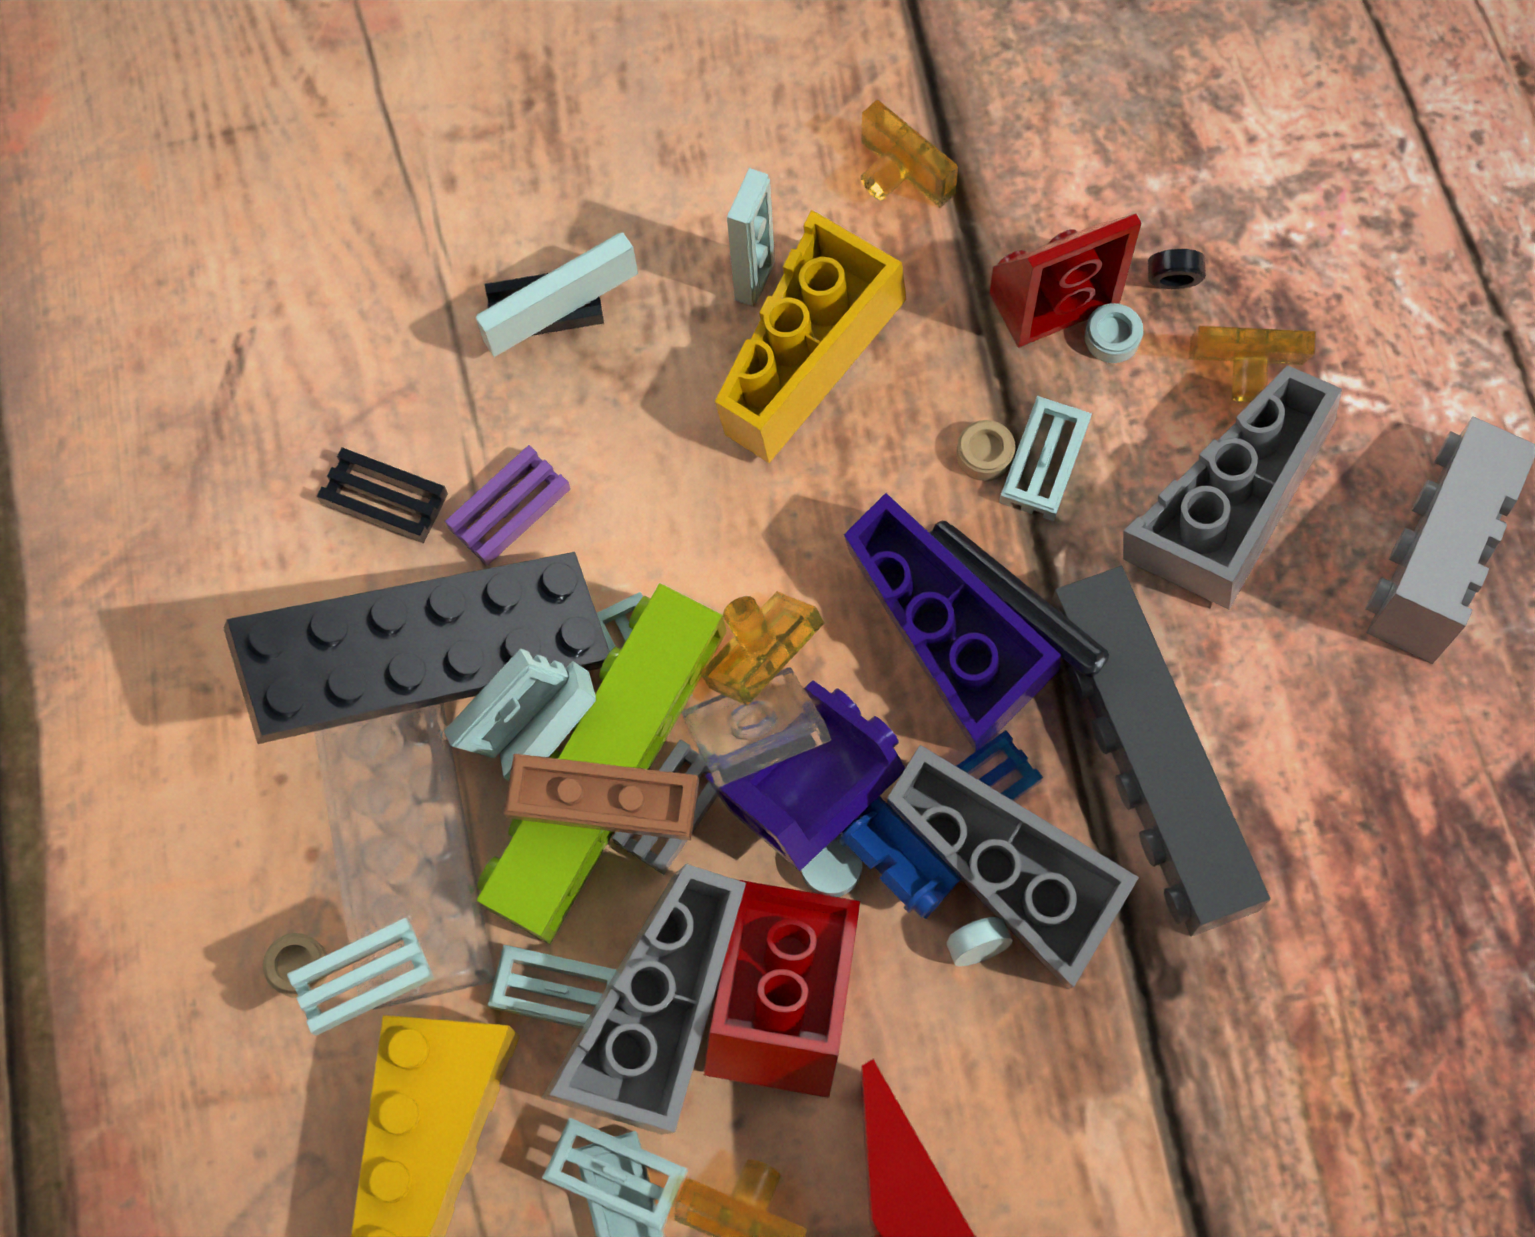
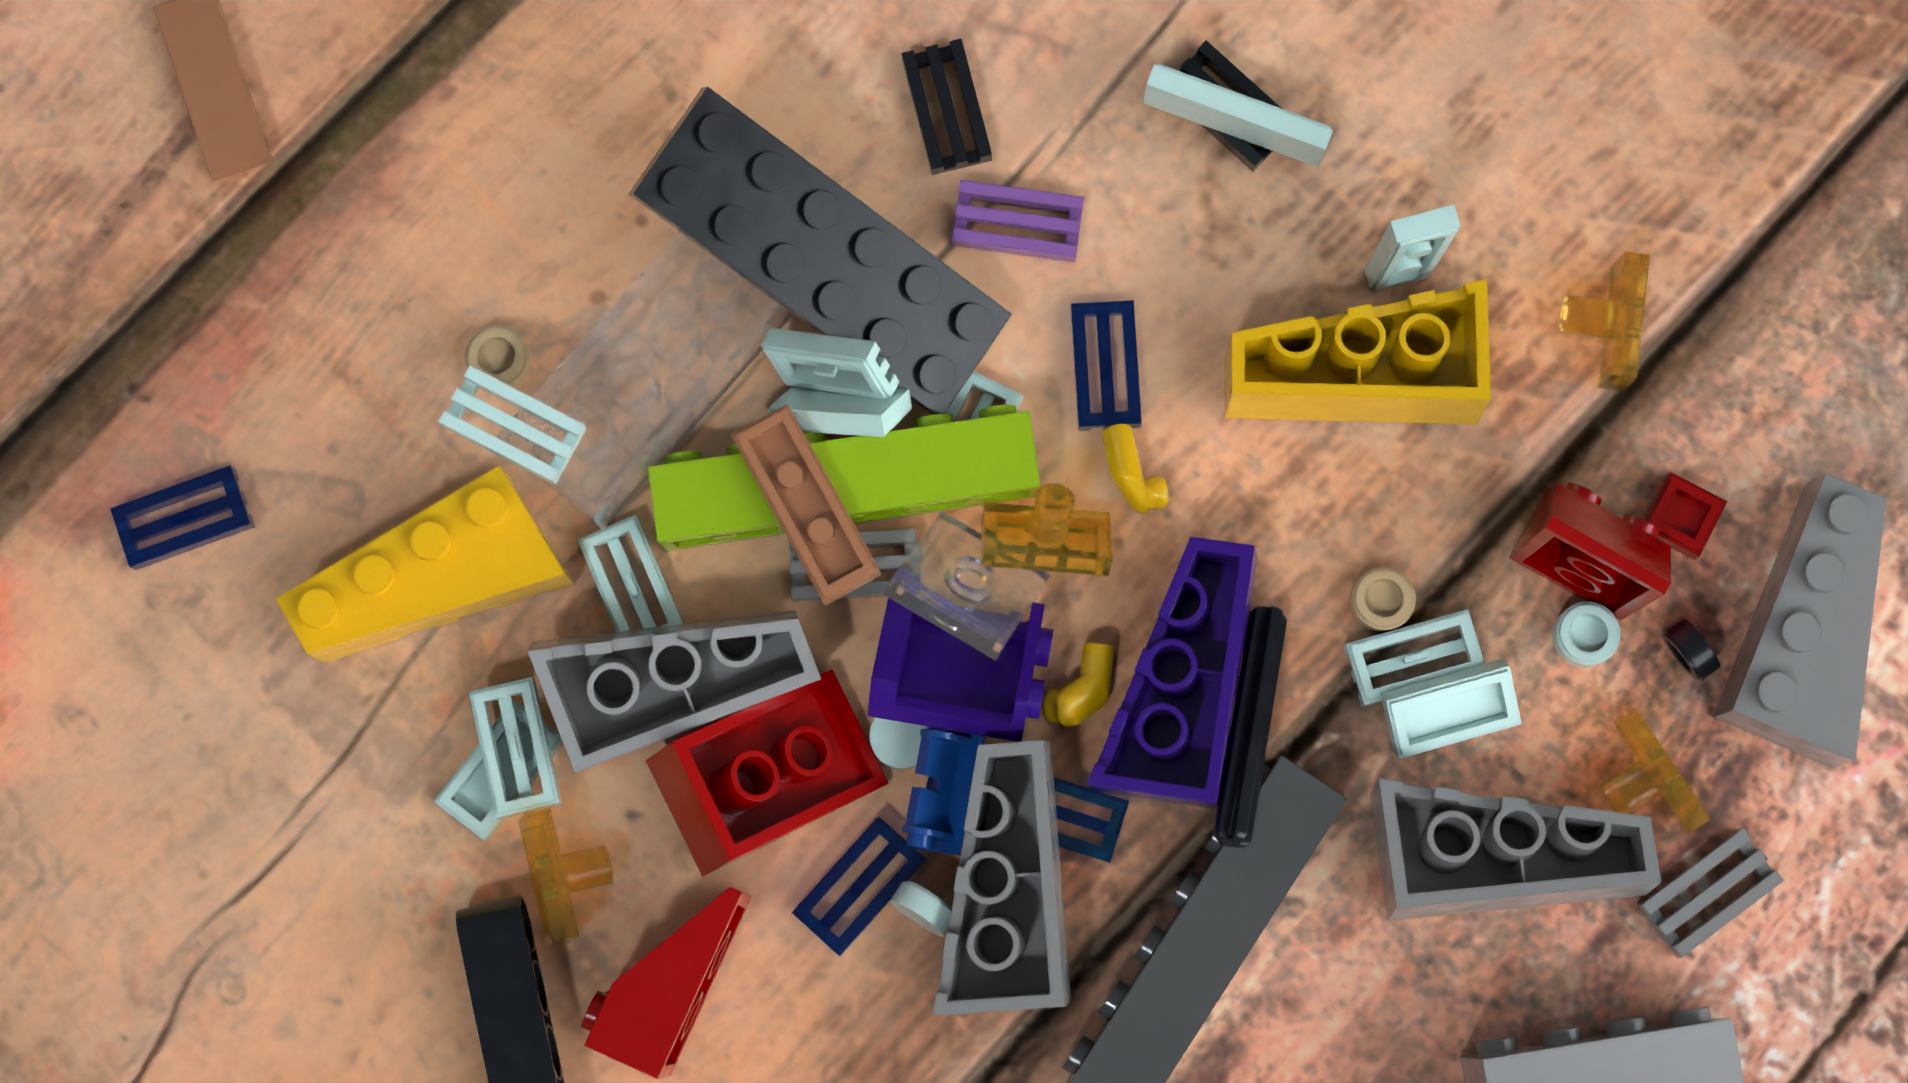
camera: 50 degrees right, 10 degrees up
(703, 545) = (1108, 417): none -> clear blue tile
(757, 557) = (1127, 473): none -> yellow arm
(899, 699) = (1085, 694): none -> yellow arm
(936, 1034) = (809, 903): none -> clear blue tile
(1073, 207) = (1684, 514): none -> red tile
(1102, 456) = (1451, 708): none -> light aqua tile
(1220, 181) = (1811, 631): none -> light grey wedge
(1361, 336) = (1753, 860): none -> light grey tile

